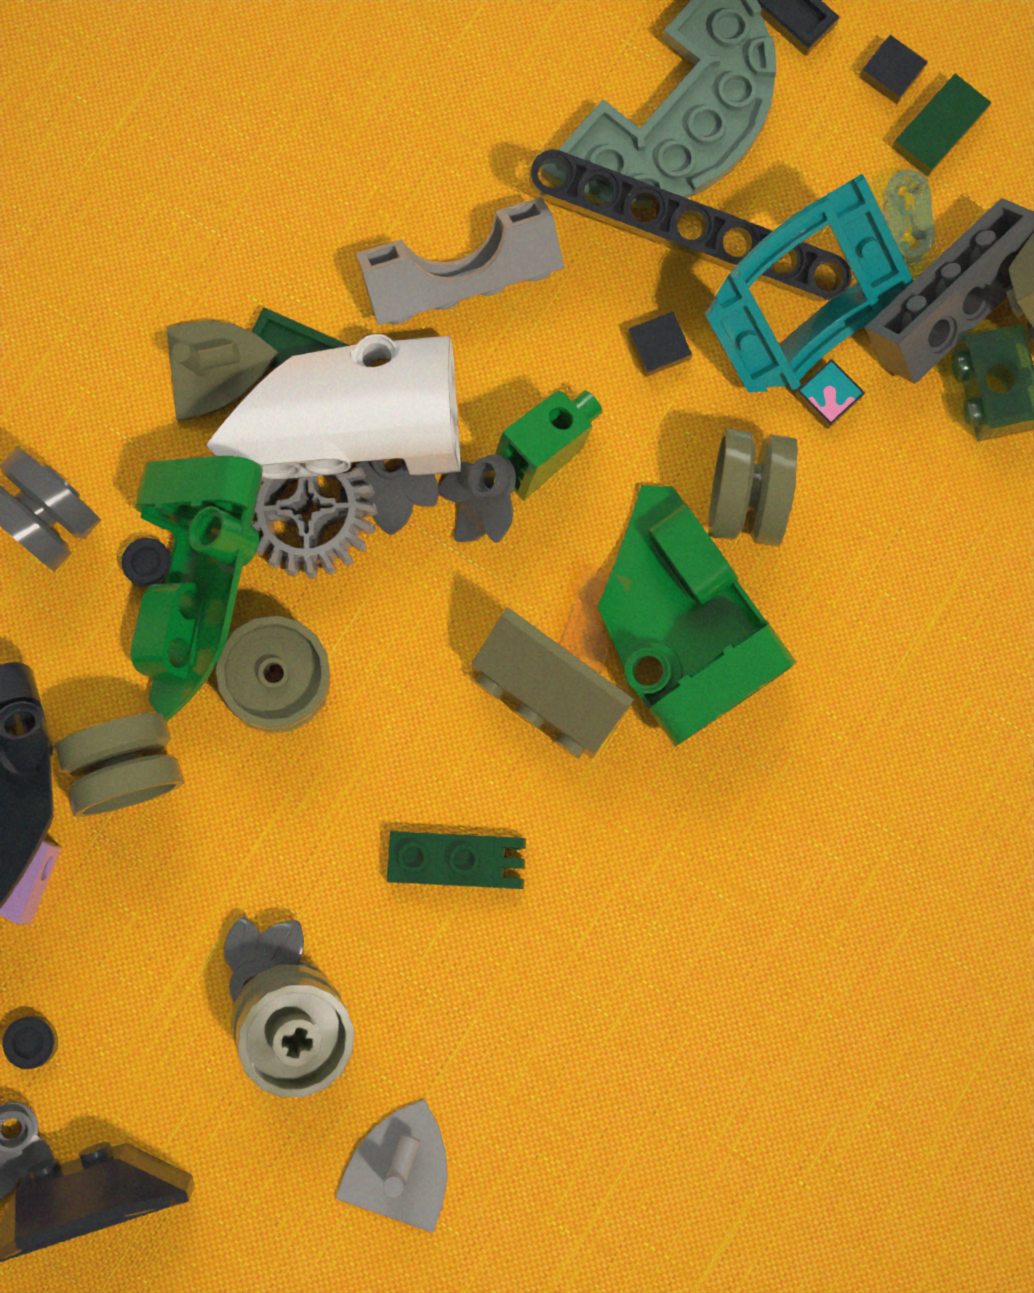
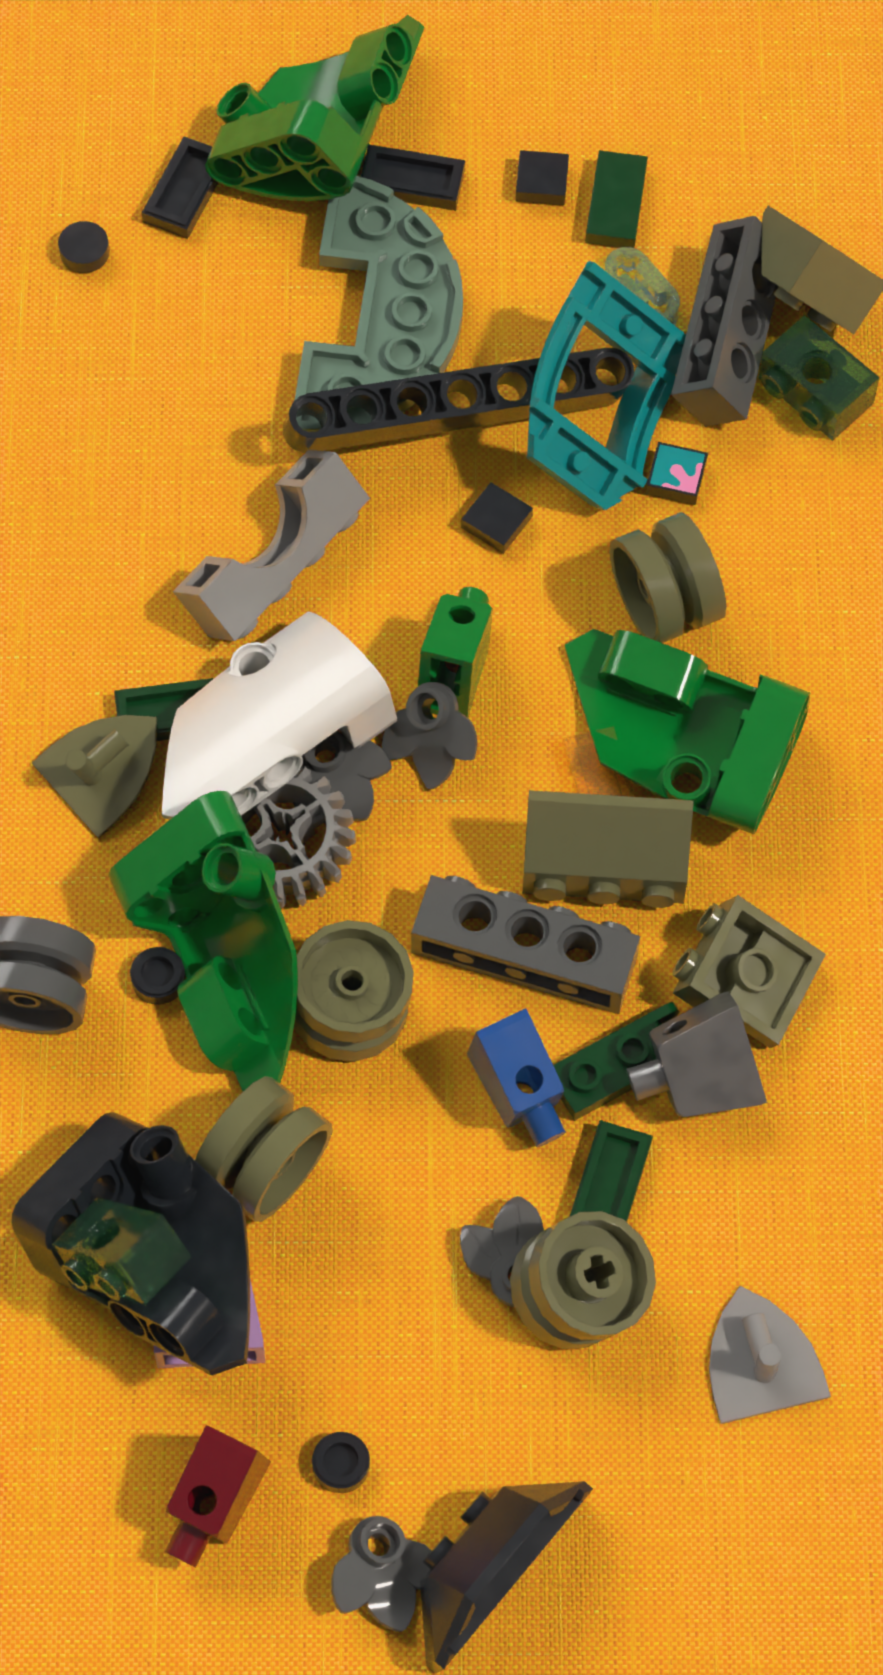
camera: 30 degrees left, 15 degrees down
(360, 808) = (514, 1054): none -> blue torso
(379, 951) = (612, 1171): none -> dark green tile
(380, 666) = (542, 967): none -> dark grey brick
(506, 909) = (701, 1061): none -> flat silver torso
(597, 852) = (754, 961): none -> olive plate

